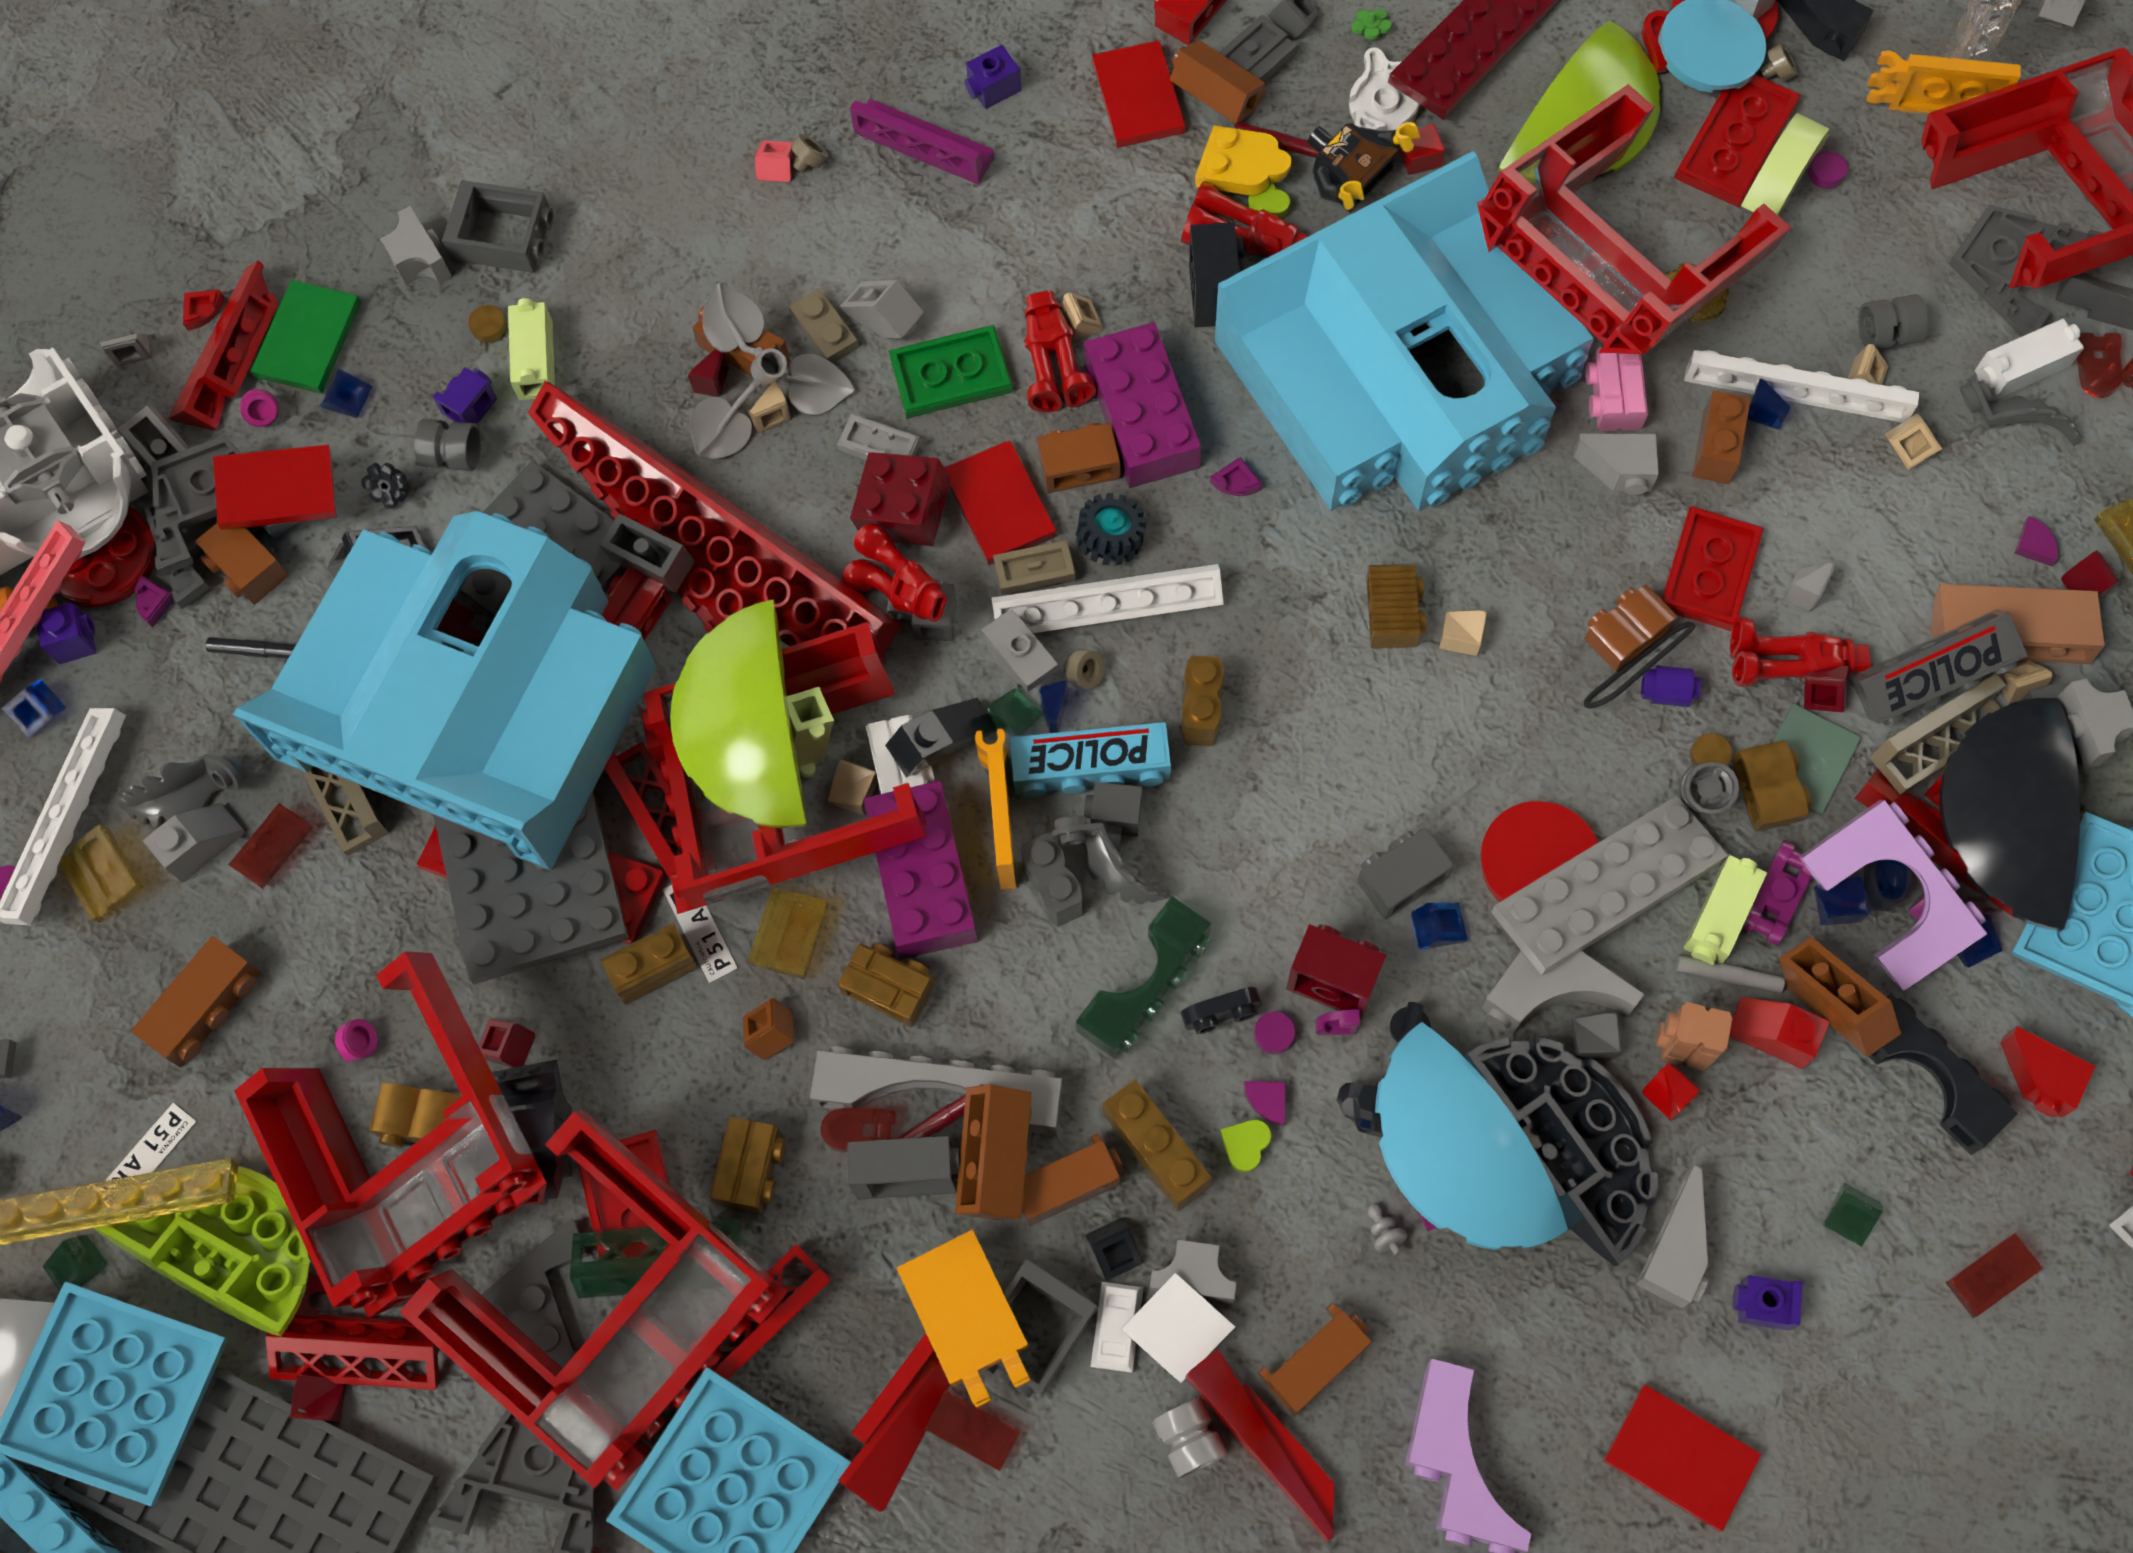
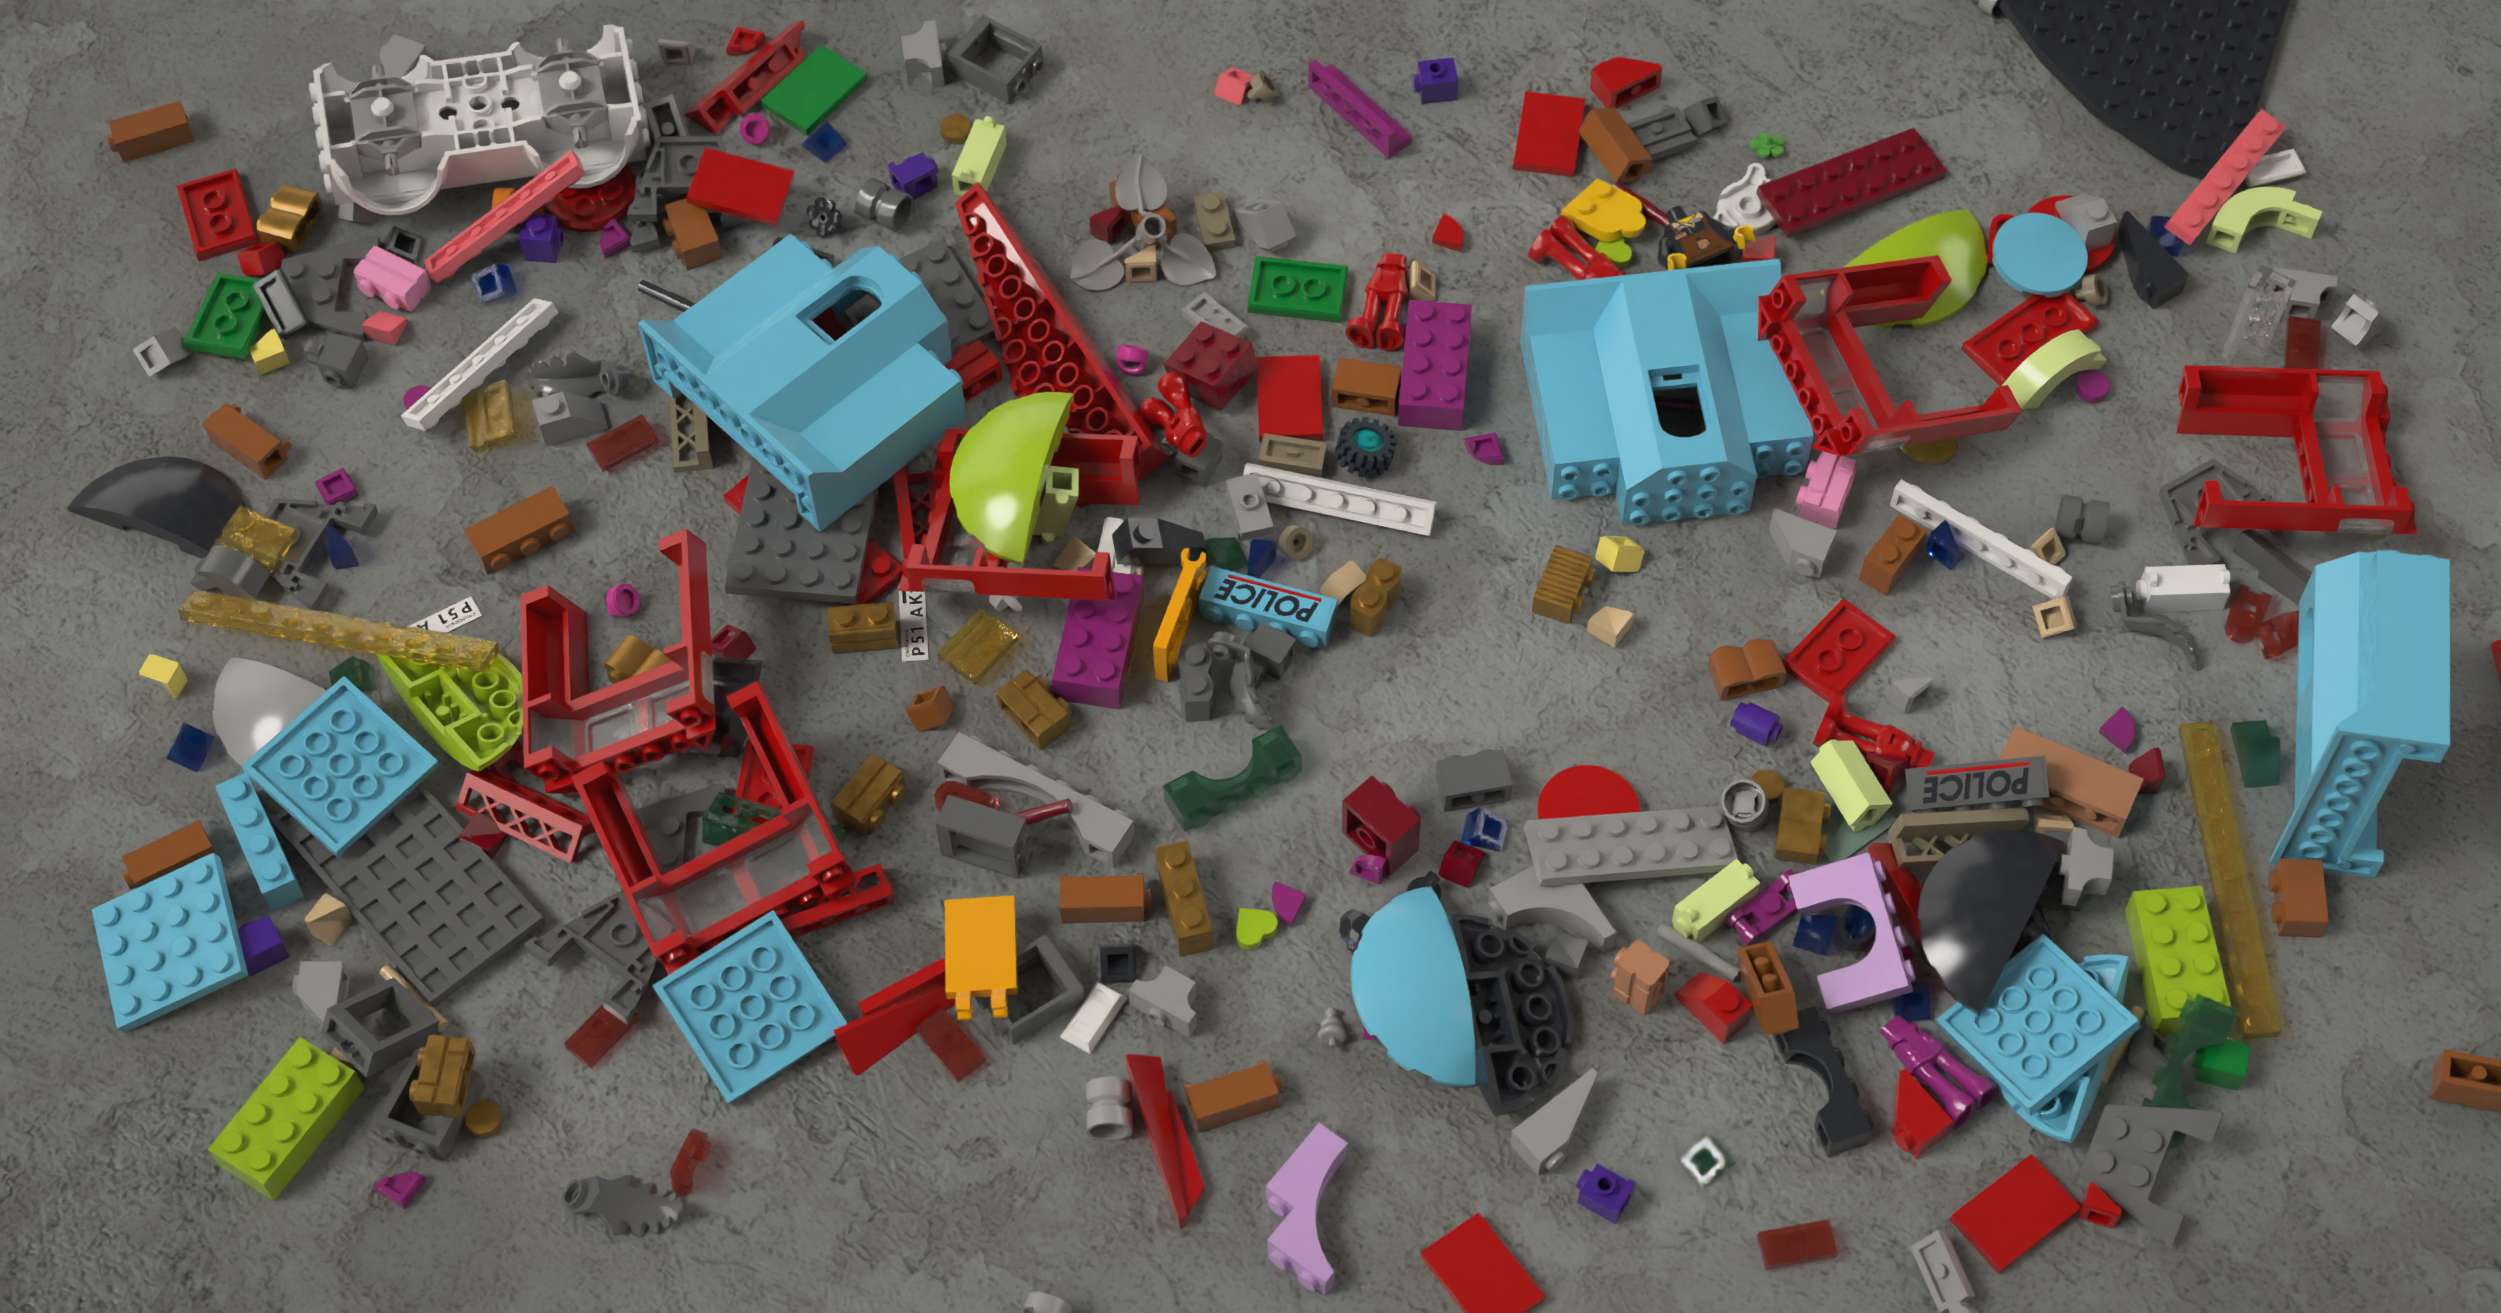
camera: 20 degrees right, 10 degrees down
(647, 552) = (997, 332): dark grey brick -> none
(806, 516) = (1133, 354): none -> dark pink tile
(993, 1152) = (1054, 846): dark orange brick -> none
(1084, 247) = (1448, 234): none -> red tile
(1159, 698) = (1343, 581): none -> tan slope
(1178, 1327) = (1137, 1027): white sticker -> none
(1208, 1013) = (1289, 823): black plate -> none
(1213, 257) = (1540, 266): black brick -> none
(1274, 1033) = (1315, 857): magenta tile -> none
(1433, 974) = (1461, 863): none -> dark red slope
(1434, 546) = (1619, 554): none -> light yellow slope
(1670, 1091) = (1605, 1015): red slope -> none
(1690, 627) = (1739, 699): black piece -> none
(1802, 716) = (1851, 783): none -> yellowish green brick
(1935, 82) = (2209, 344): light orange tile -> none
(2015, 999) = (1922, 1052): none -> magenta piece
(2018, 48) = (2302, 343): none -> clear red plate

